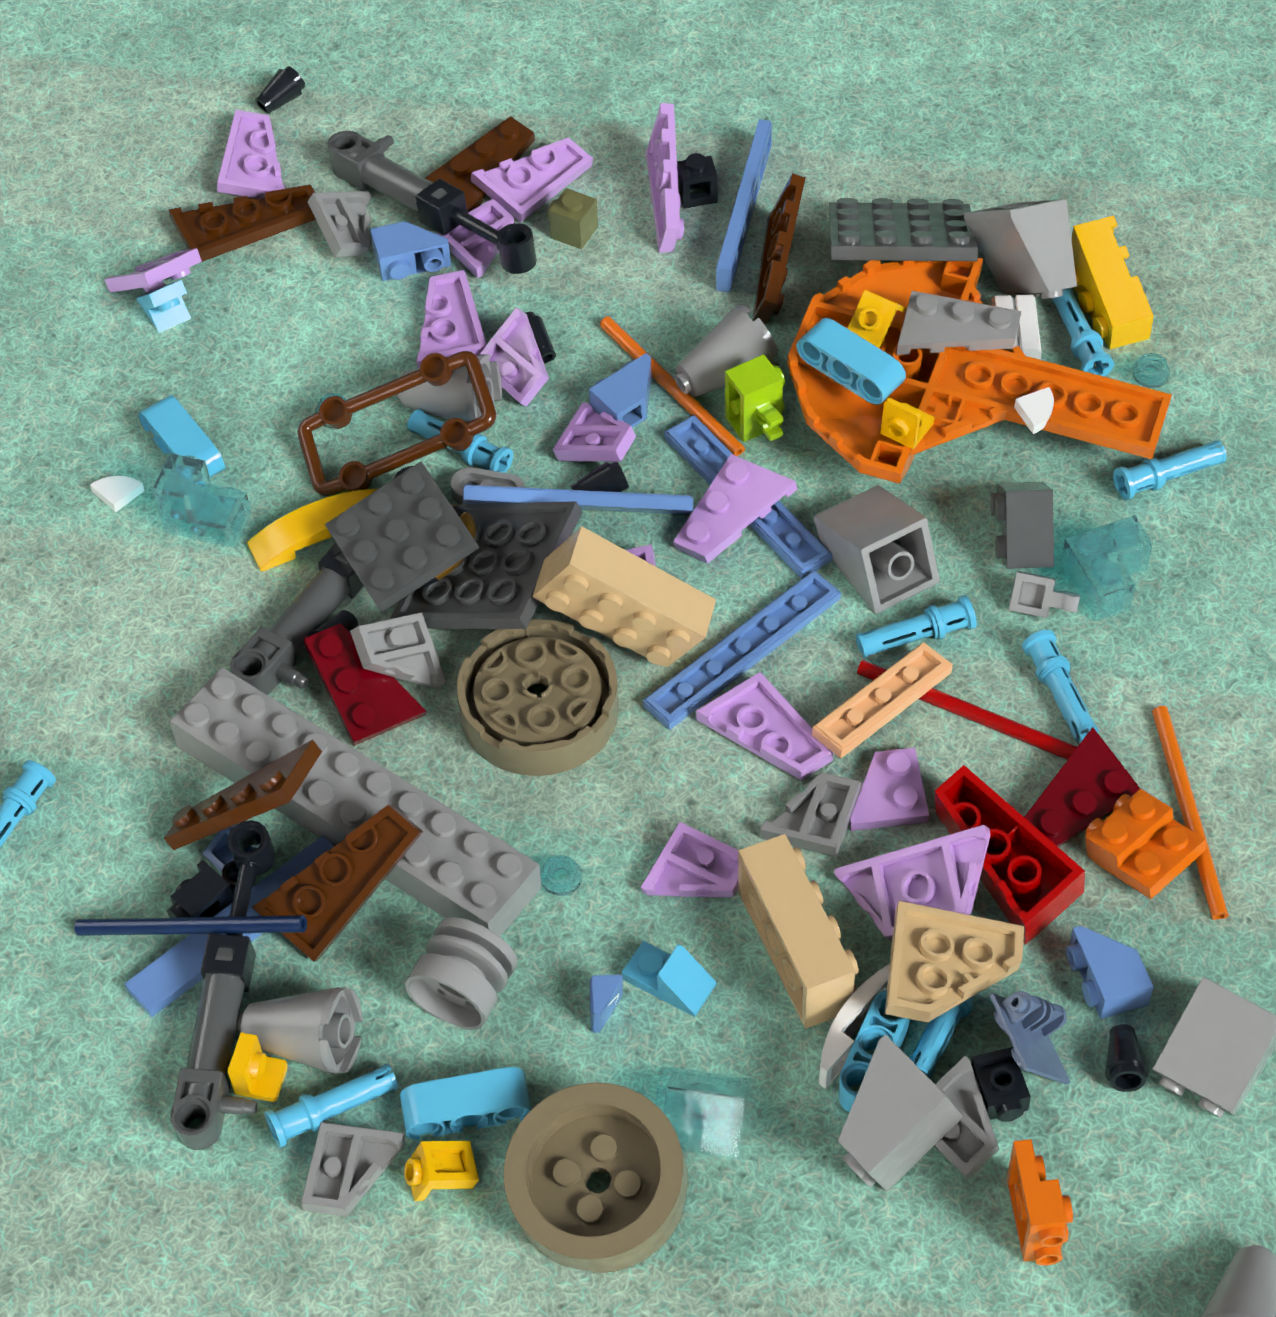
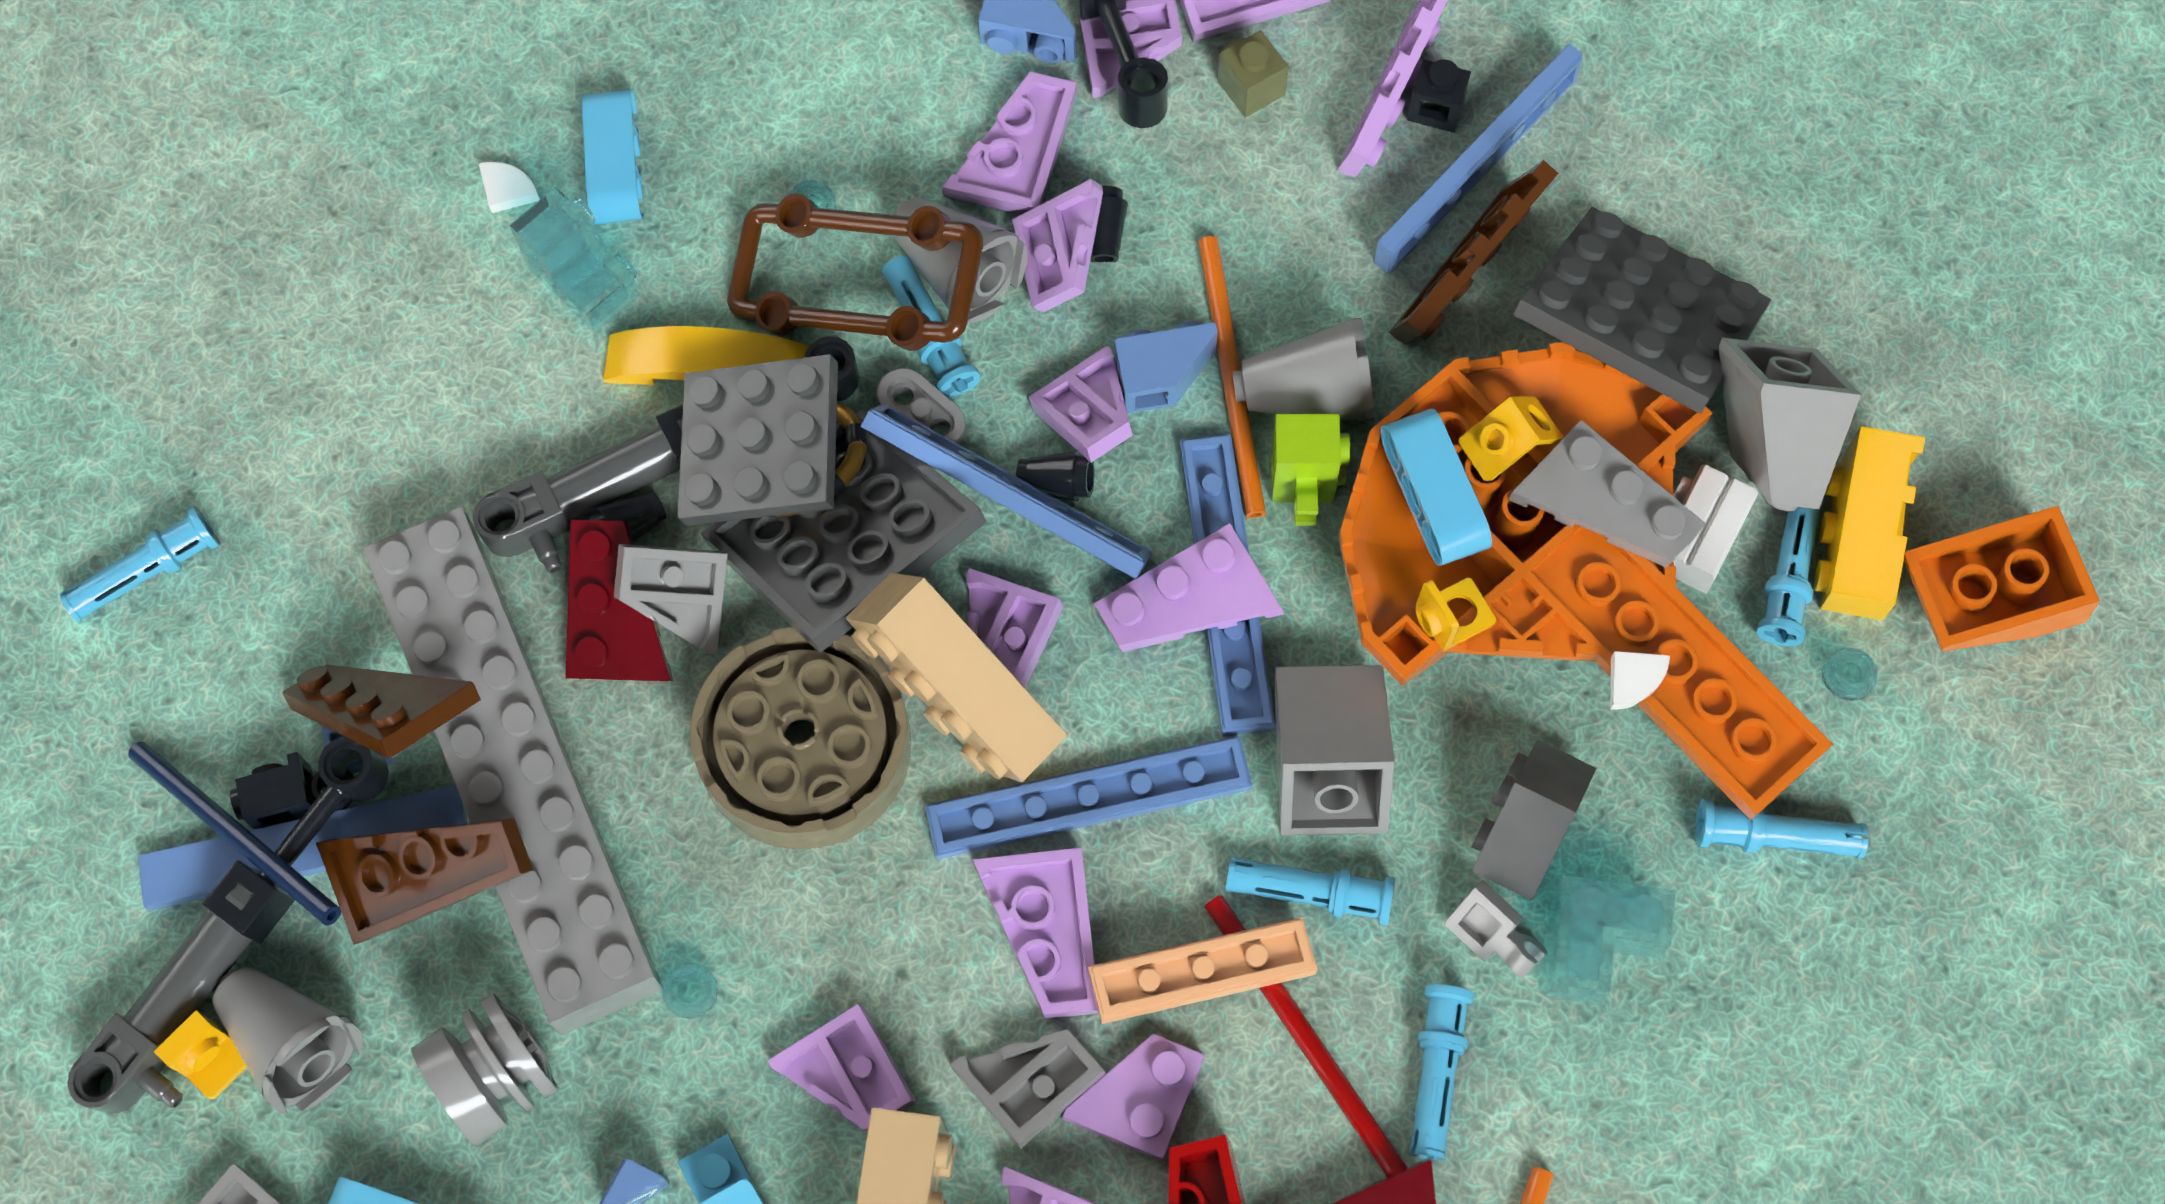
camera: 30 degrees right, 15 degrees up
(311, 1110) = (236, 1140): medium azure pin -> none
(1207, 277) = (2003, 582): none -> orange slope

